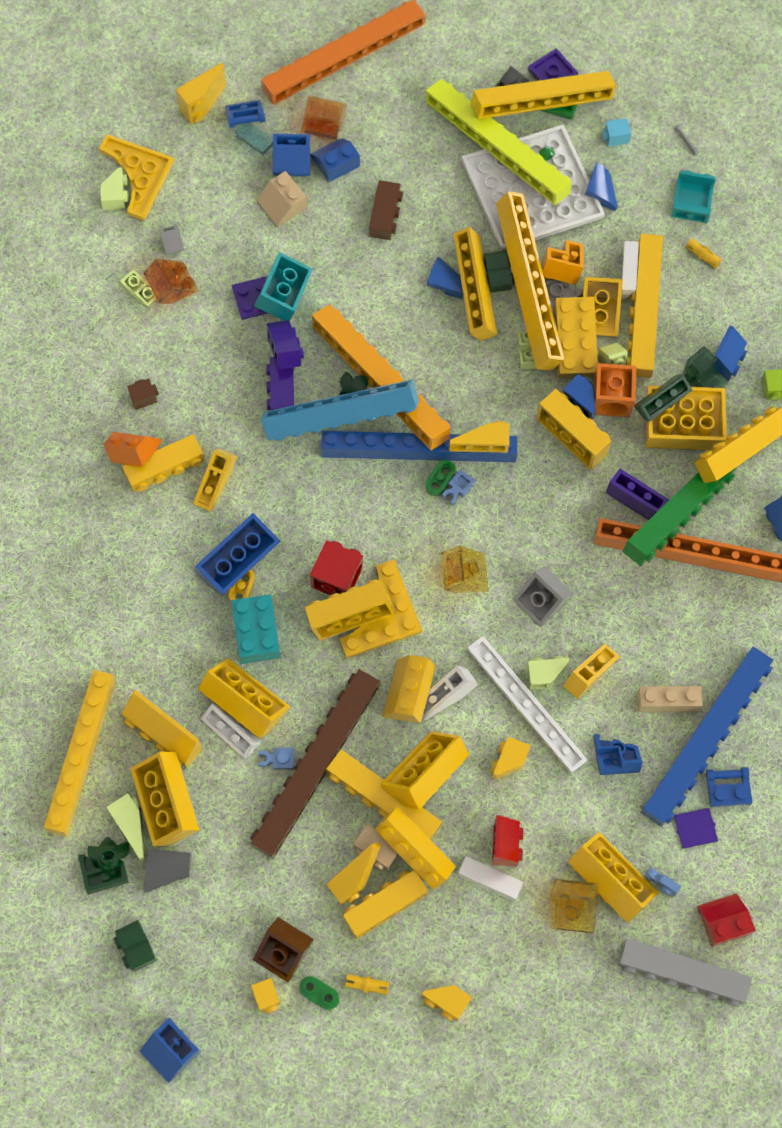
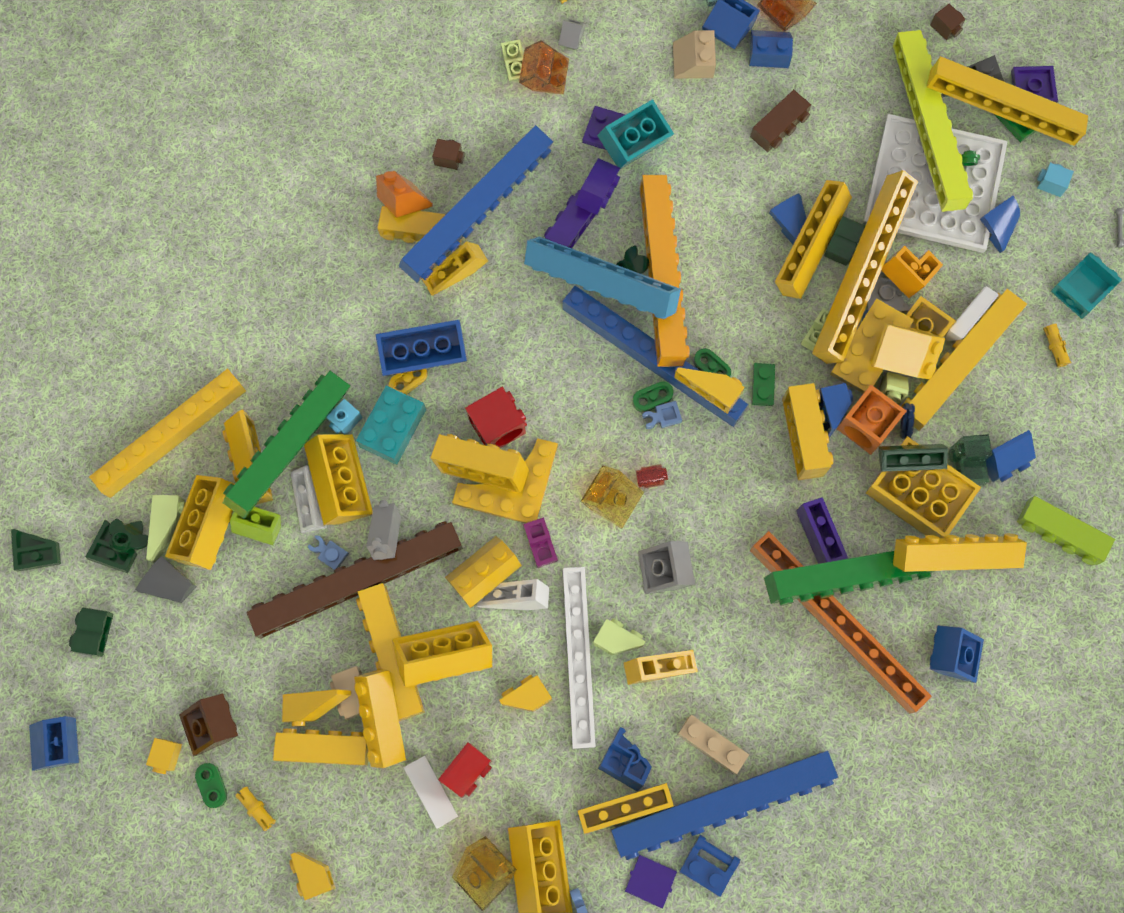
camera: 40 degrees right, 5 degrees up
(38, 918) = (33, 551): none -> dark green wing
(189, 694) = (287, 443): none -> green brick
(198, 418) = (475, 205): none -> blue brick
(206, 773) = (257, 525): none -> lime brick
(213, 648) = (344, 418): none -> medium azure brick
(312, 709) = (384, 531): none -> light grey brick
(435, 641) = (540, 542): none -> magenta slope
(456, 60) = (948, 22): none -> reddish brown brick
(468, 423) = (714, 365): none -> green plate
(483, 537) = (651, 476): none -> clear red brick
(515, 416) = (763, 384): none -> green plate
(606, 322) = (908, 351): none -> yellow slope
(640, 375) = (907, 421): none -> dark blue axle
(641, 787) = (625, 808): none -> yellow brick

